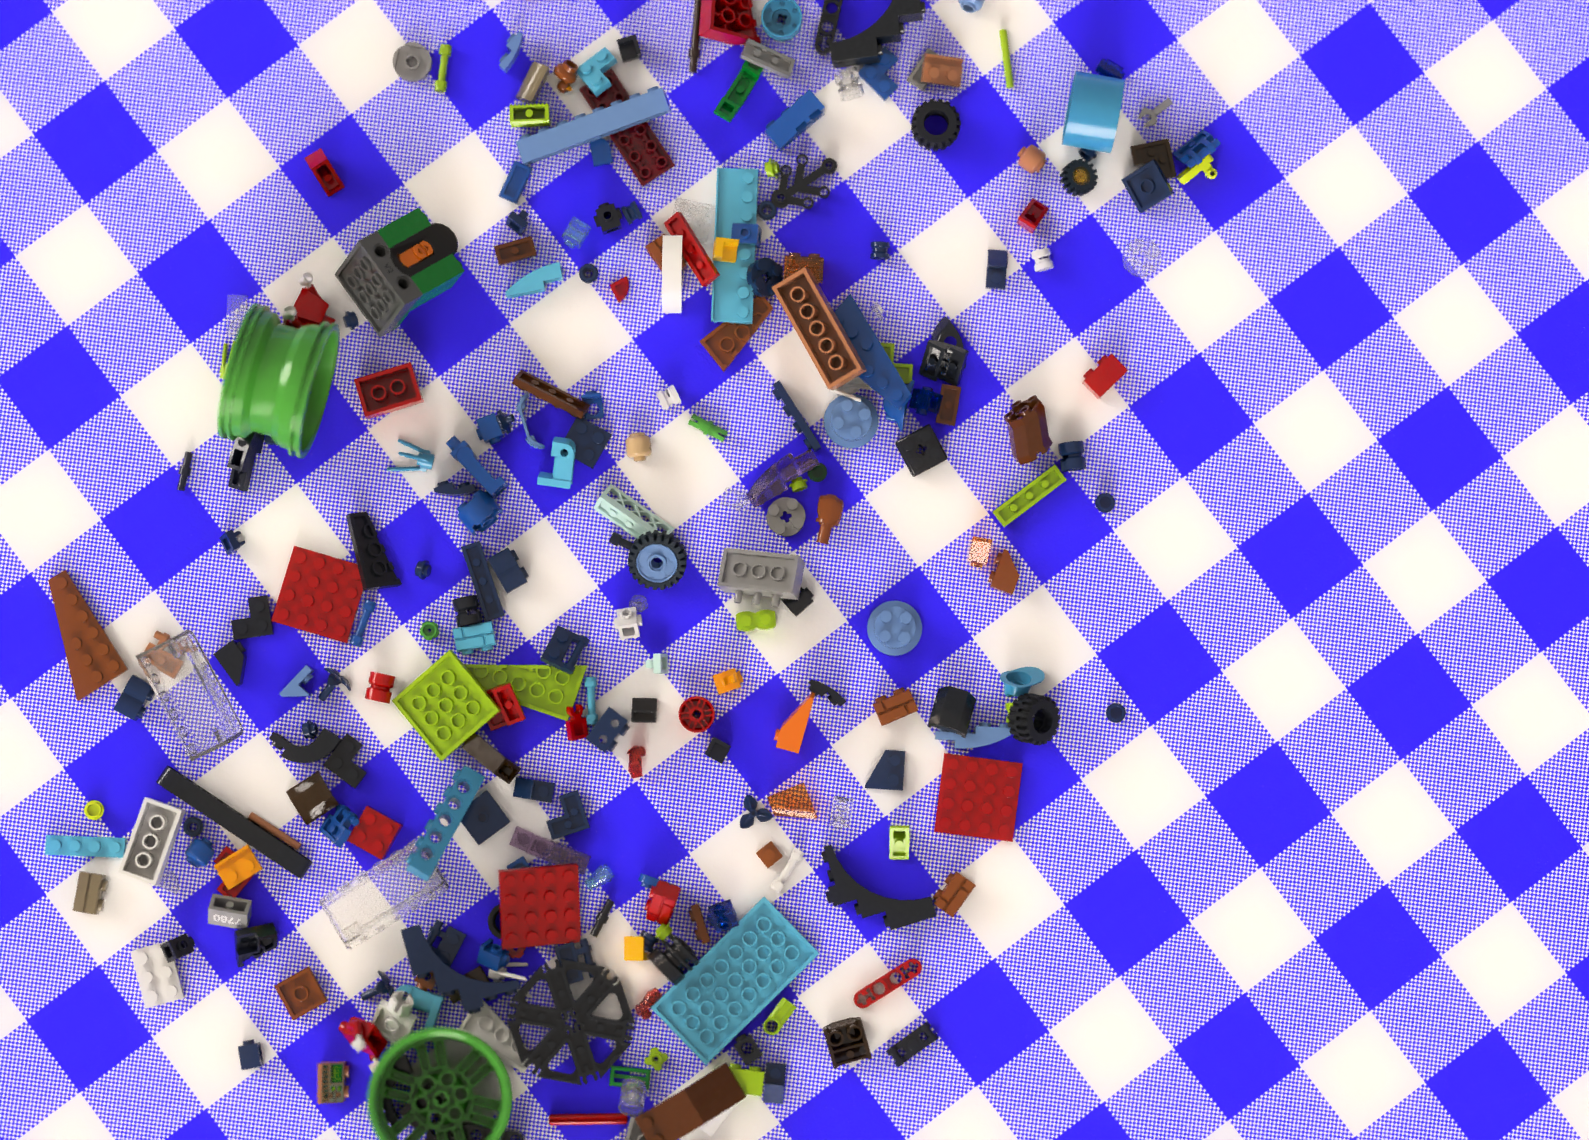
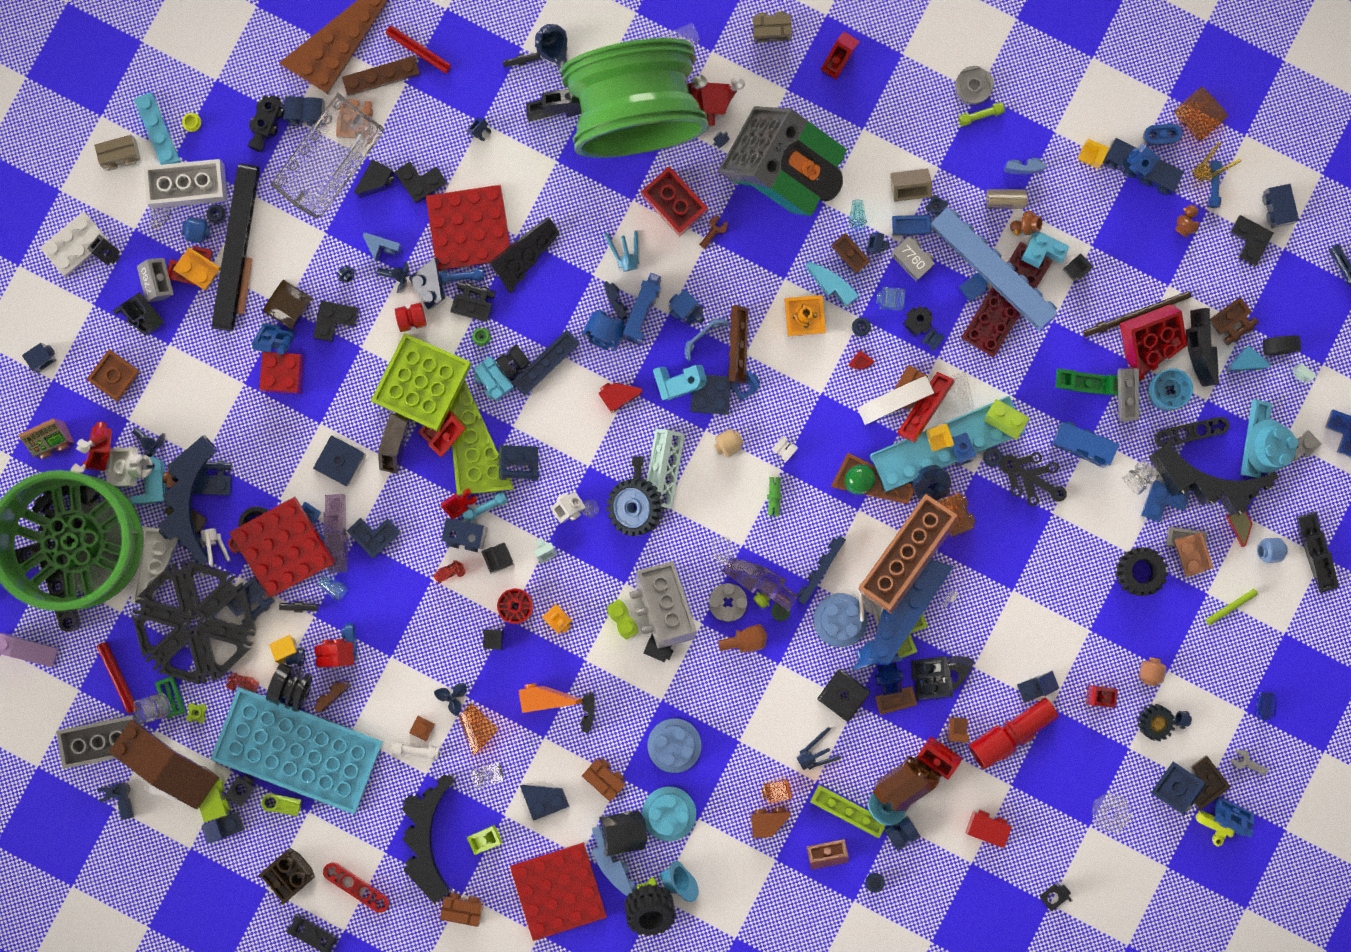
camera: 70 degrees right, 0 degrees up
(125, 733) = (270, 117): none -> black brick
(127, 563) = (418, 49): none -> red axle
(136, 610) = (381, 76): none -> reddish brown plate
(186, 435) = (552, 44): none -> dark blue hair
(268, 222) = (772, 27): none -> dark tan brick
(314, 752) = (332, 290): black arch -> none
(356, 656) = (429, 284): none -> wing
(380, 897) = (230, 407): clear windscreen -> none
(398, 625) = (471, 307): none -> black plate
(416, 863) = (364, 437): dark azure brick -> none
(423, 569) = (531, 305): dark blue plate -> none
(434, 368) = (714, 230): none -> copper bar
(478, 164) = (911, 185): none -> dark tan brick
(483, 227) = (857, 215): none -> clear light blue cone
(493, 955) = (219, 527): blue brick -> none
(508, 570) = (565, 380): dark blue brick -> none
(509, 144) = (936, 200): none -> dark blue plate
(529, 115) = (976, 209): lime brick -> none
(534, 789) = (384, 494): dark blue slope -> none
(545, 528) = (618, 395): none -> red slope
(547, 195) = (913, 258): none -> light grey brick
(547, 308) = (814, 306): none -> light orange plate
(663, 931) = (309, 667): lime plate -> none
(722, 916) = (347, 713): clear blue brick -> none
(729, 341) = (859, 479): none -> green hair
(738, 180) = (1006, 419): none -> lime brick
(772, 168) = (1032, 444): lime plate -> none
(879, 250) = (1004, 574): dark blue wheel -> none
(937, 15) = (1241, 527): none -> olive tile
(954, 661) = (669, 813): none -> medium azure piece
(964, 511) = (807, 760): none -> dark blue plant
(1001, 361) = (957, 730): none -> dark orange panel
(1018, 390) = (939, 758): none -> red brick
(1030, 325) = (1002, 741): none -> red piece
(1042, 259) = (1065, 727): white wheel -> none
(1050, 461) = (890, 817): none -> medium azure dish
(1059, 534) = (828, 854): none -> slope
(1093, 112) = (1223, 709): dark azure wheel -> none
(1190, 337) = (1062, 892): none -> black bracket

